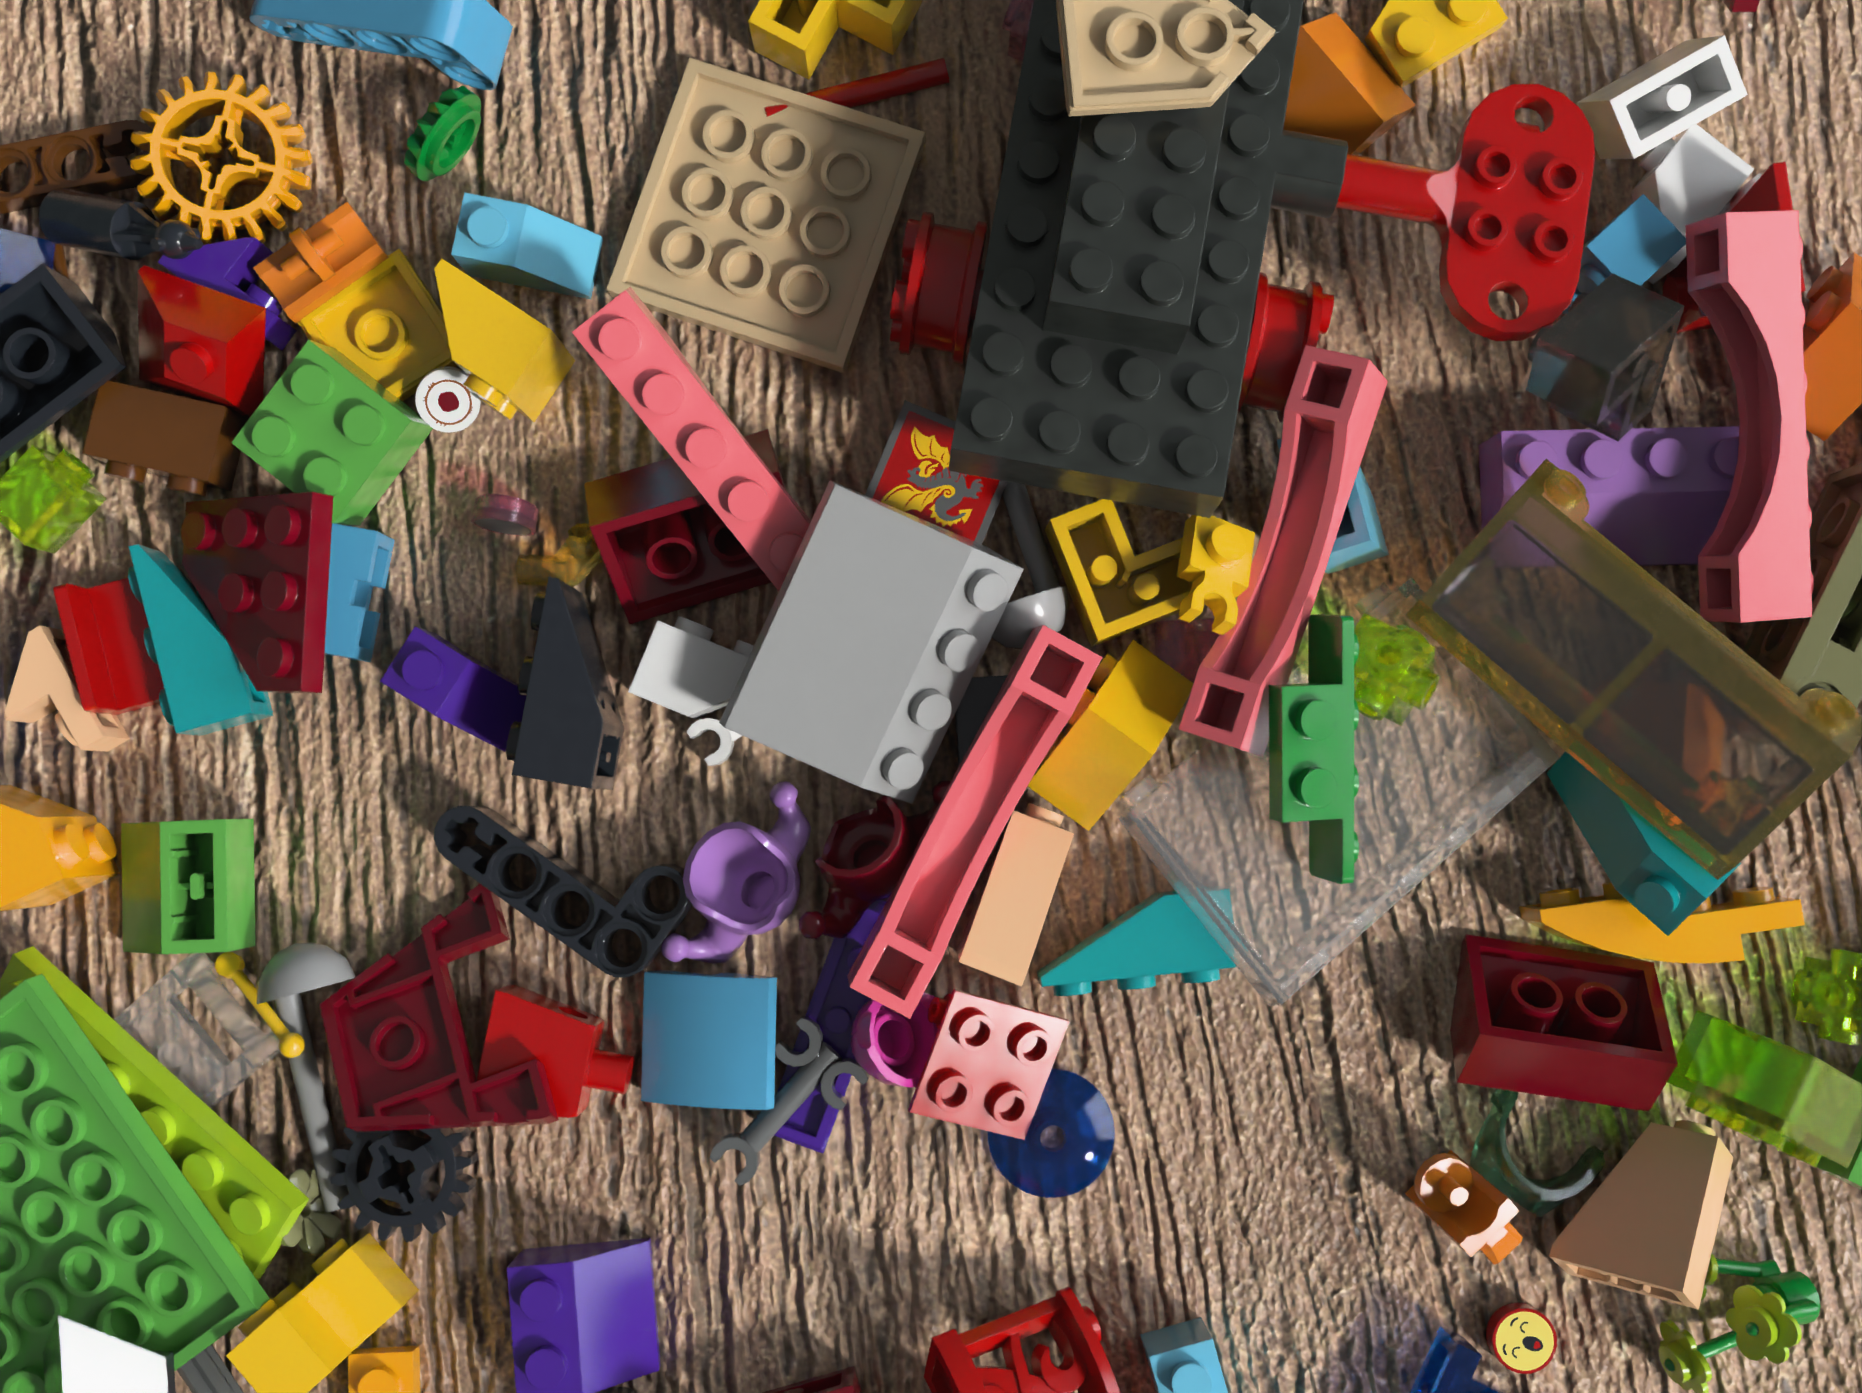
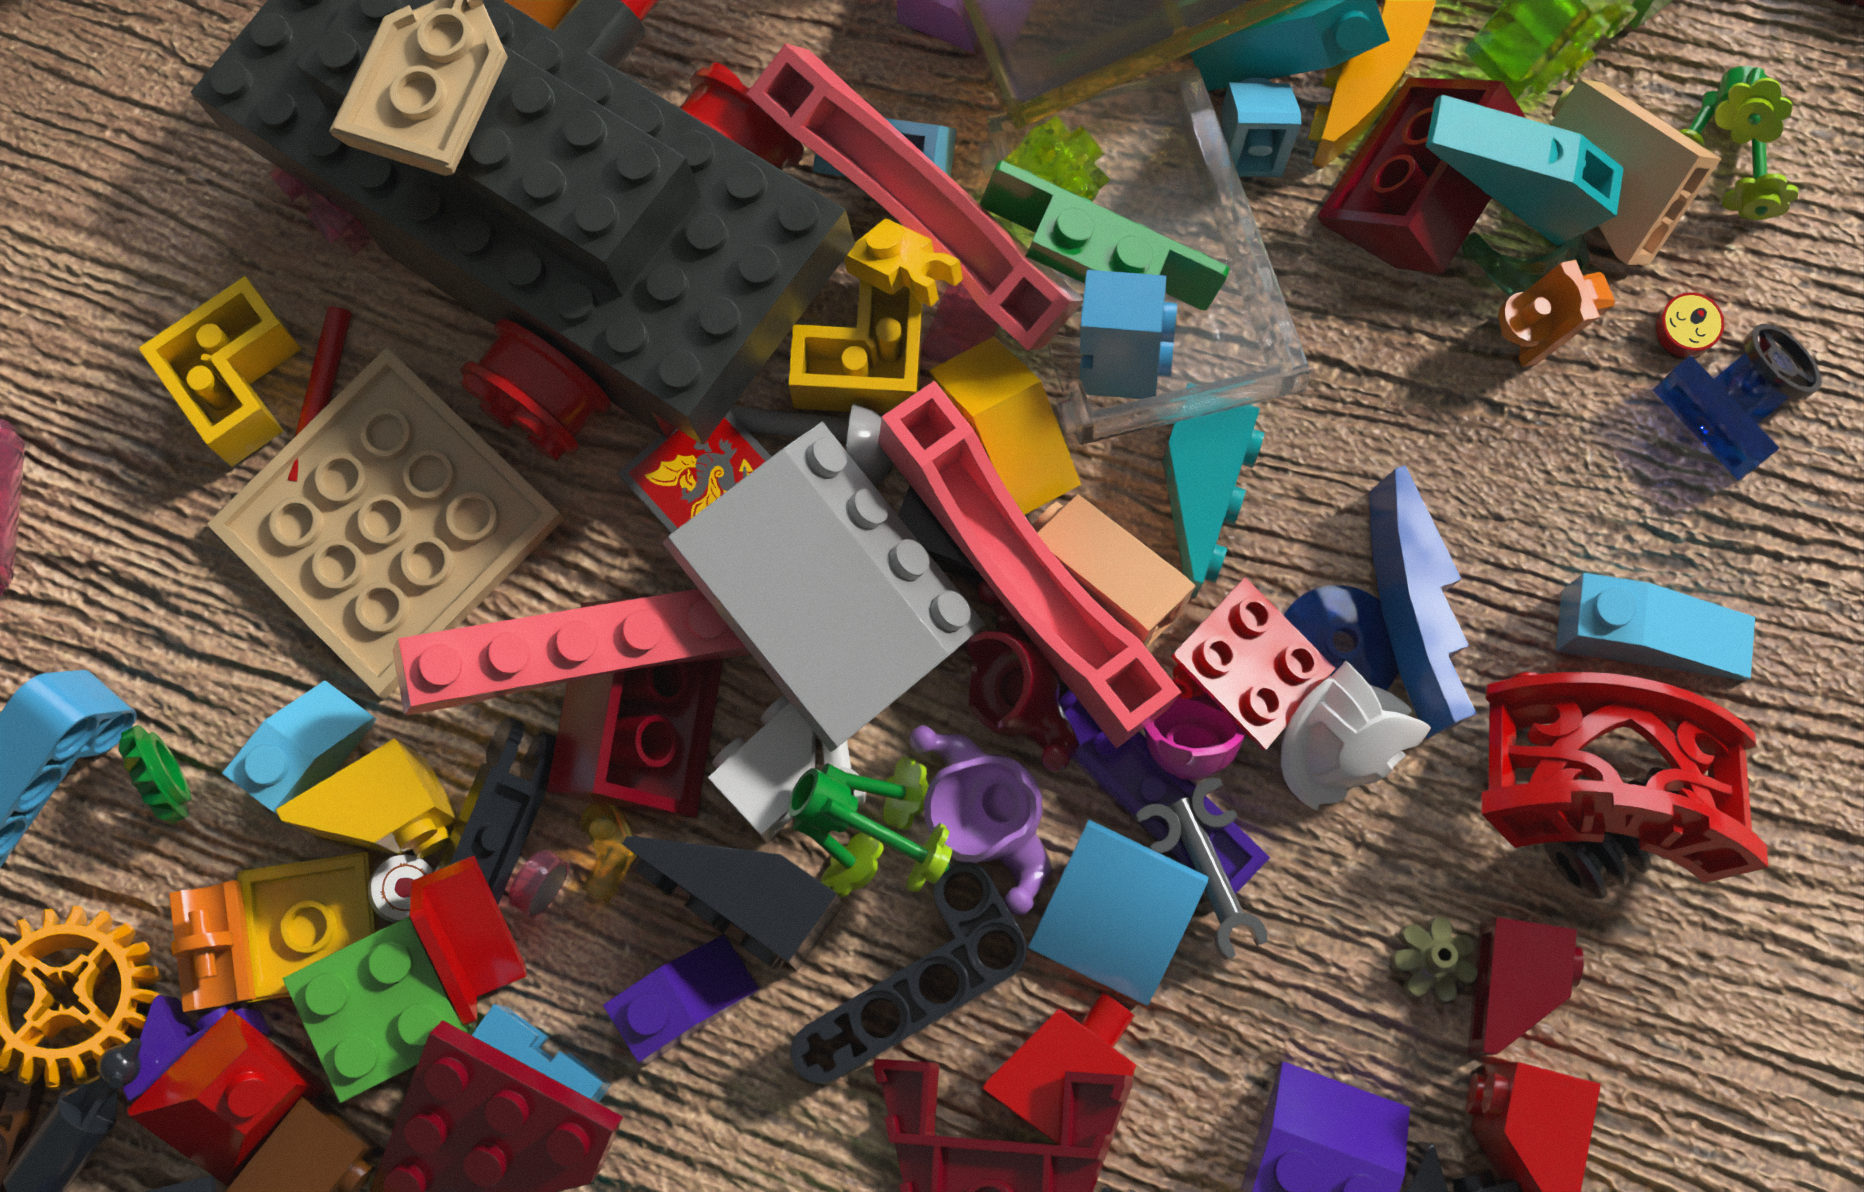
camera: 60 degrees left, 10 degrees down
(424, 473) = (464, 934): none -> red panel
(544, 449) = (501, 805): none -> black hinge
(676, 738) = (825, 803): none -> plant
(800, 1328) = (1427, 968): none -> olive plant
(958, 1176) = (1345, 738): none -> white helmet
(1141, 1175) = (1411, 579): none -> slope
(1236, 814) = (1125, 334): none -> dark azure brick
(1529, 842) = (1260, 126): none -> medium azure slope
(1595, 1129) = (1532, 168): none -> teal slope

